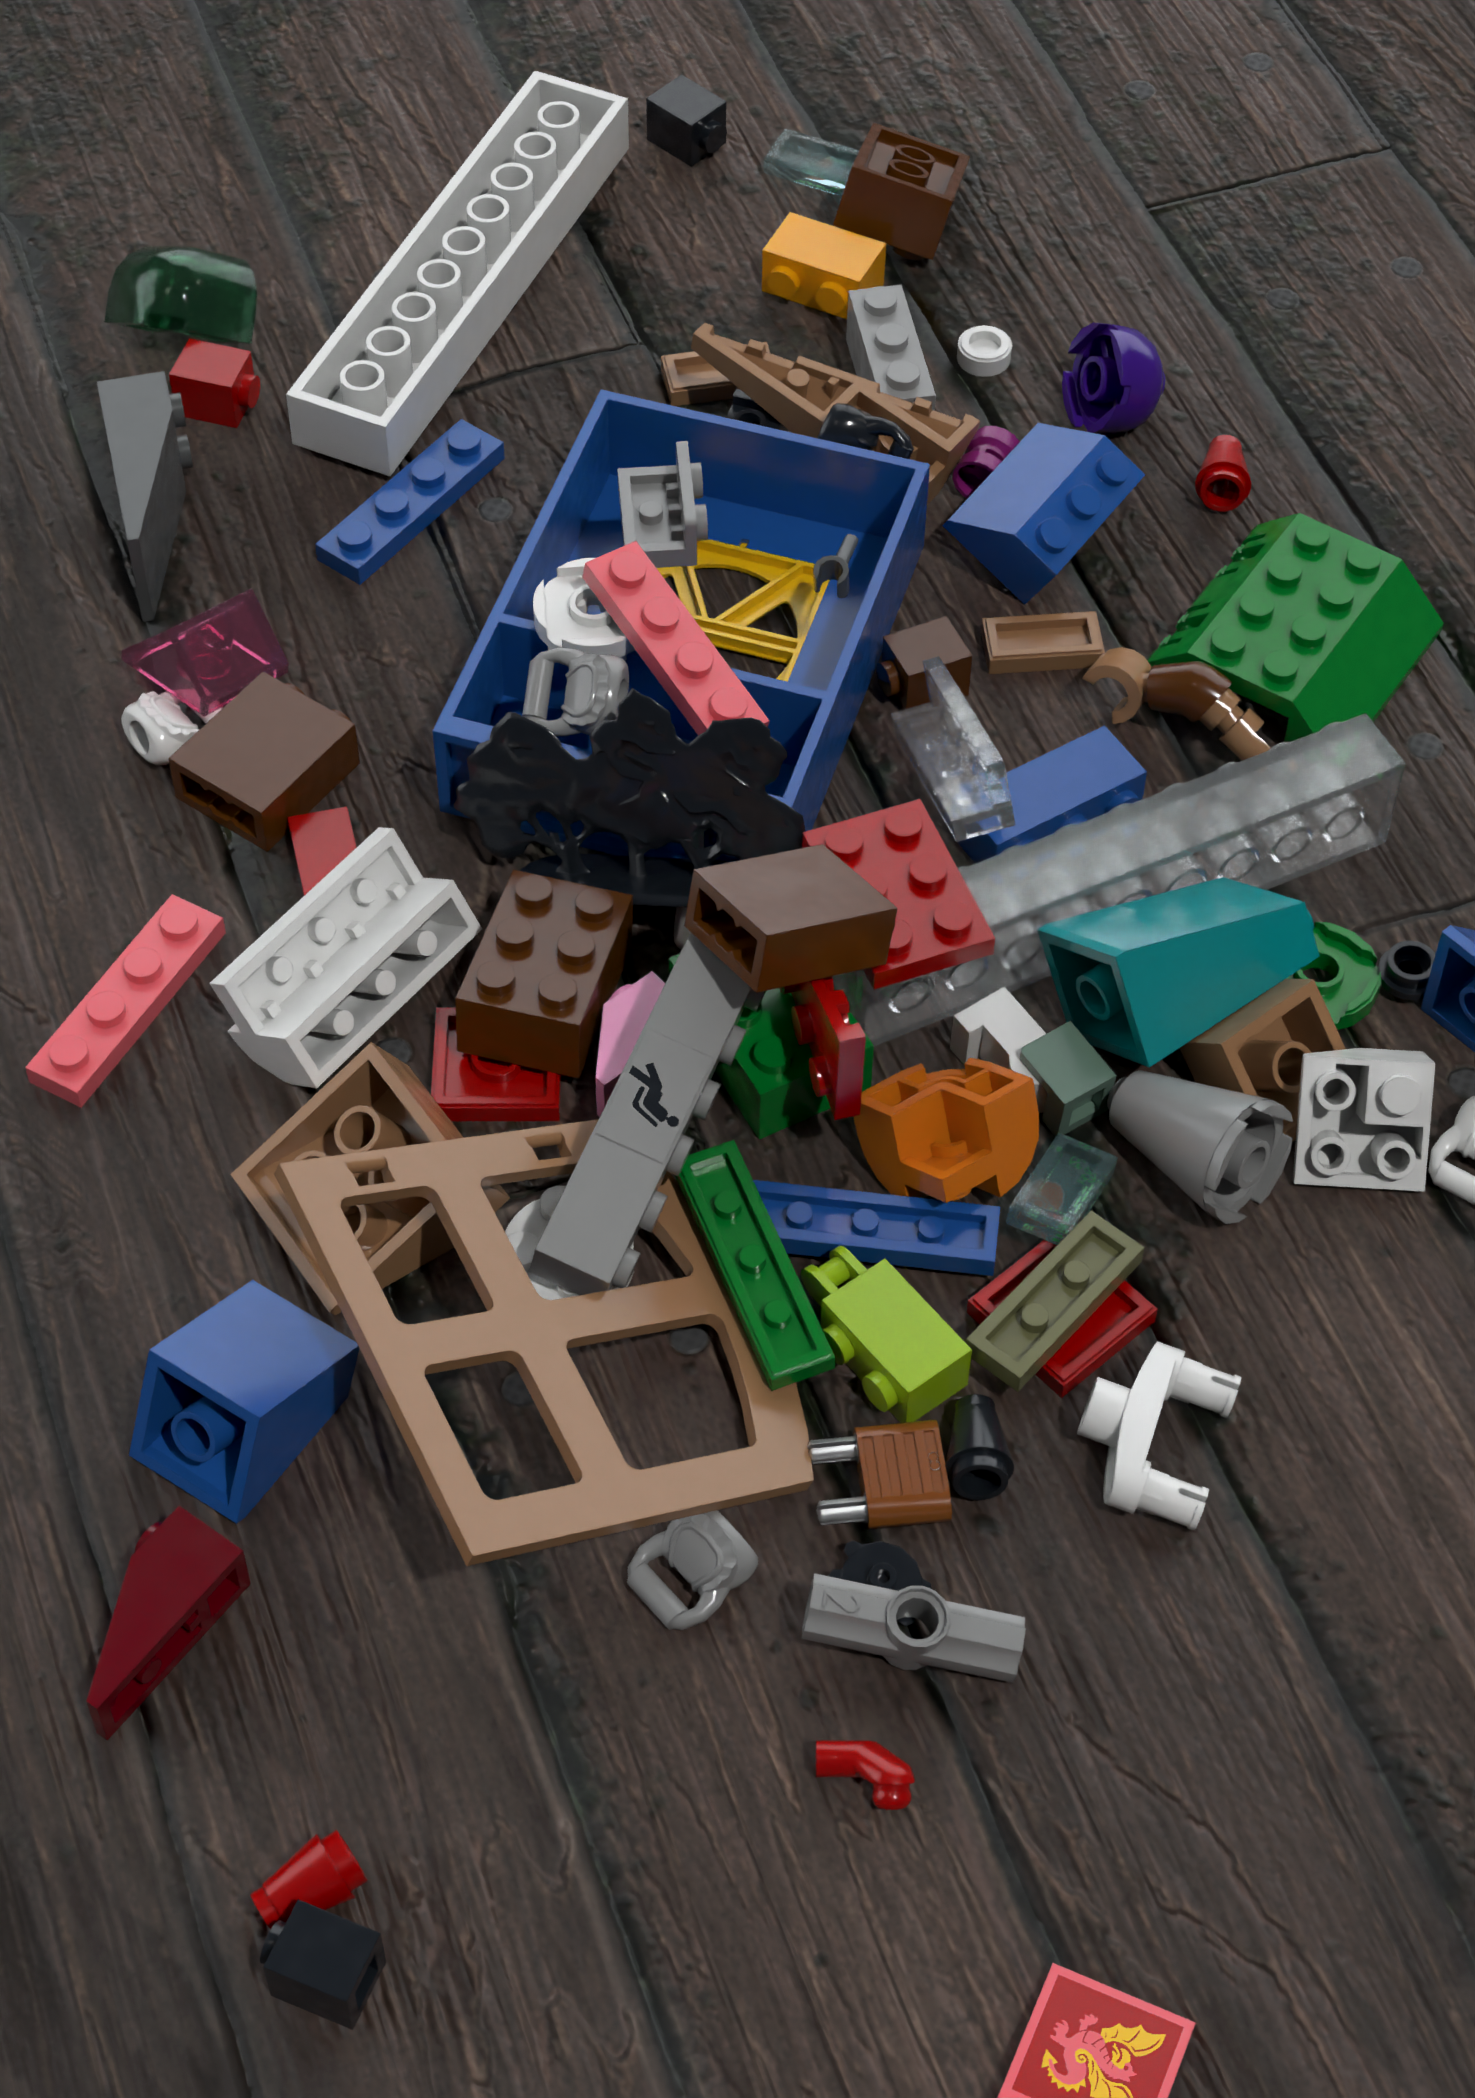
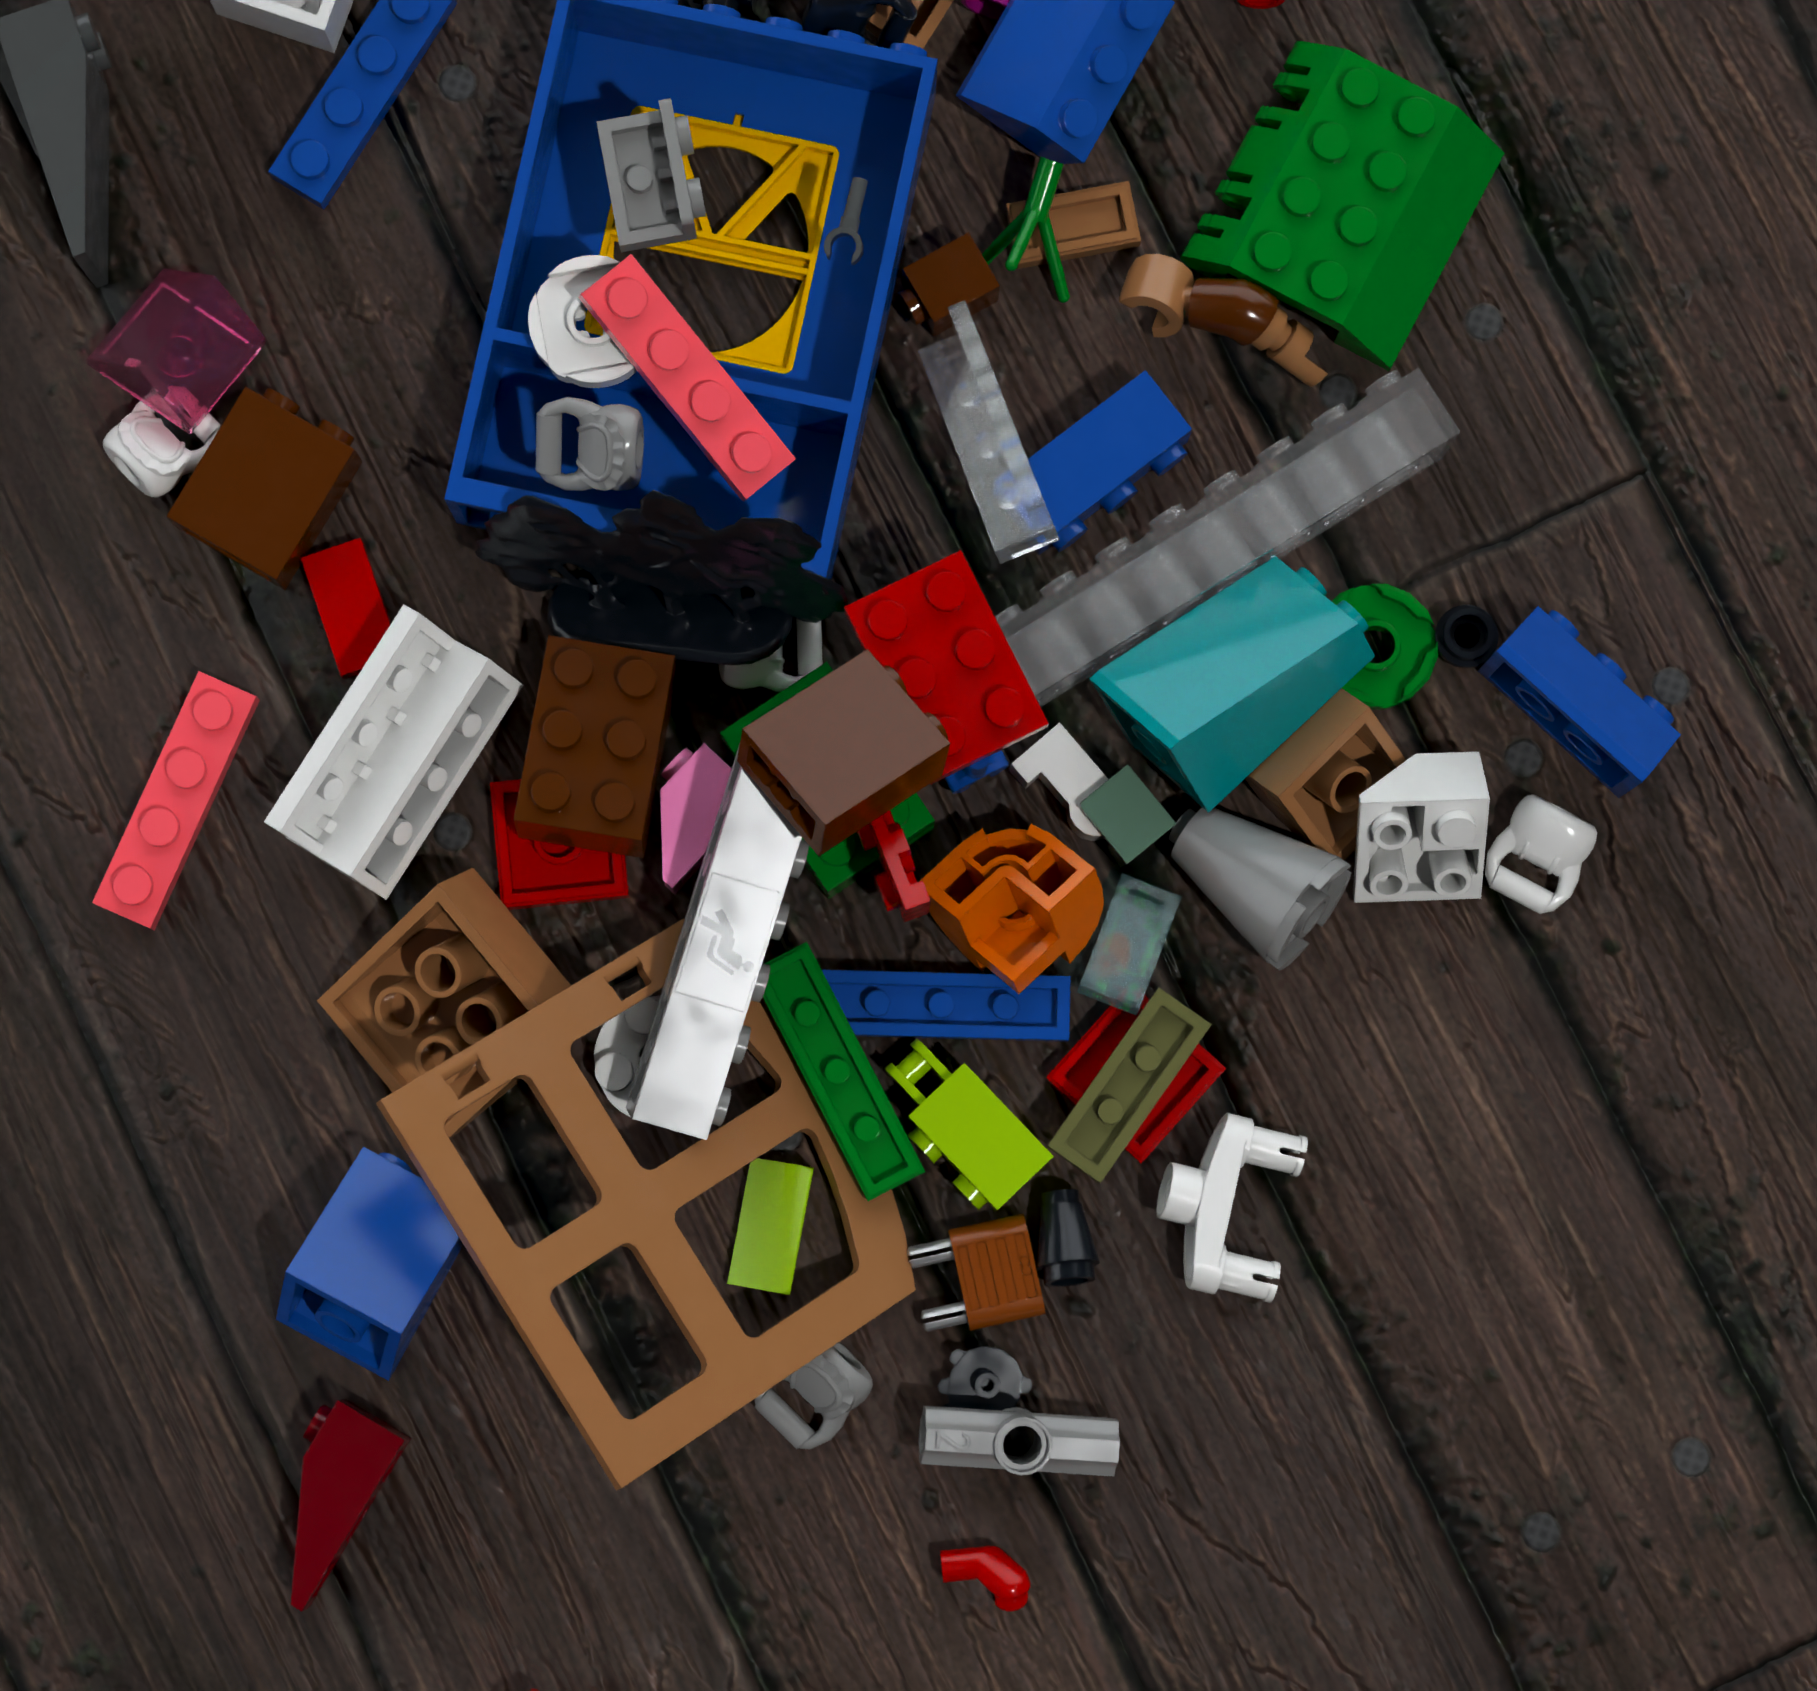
camera: 10 degrees left, 30 degrees up
(668, 1405) = (770, 1226): none -> lime slope
(918, 1021) = (964, 778): none -> blue bar
(1010, 613) = (1035, 212): none -> green plant

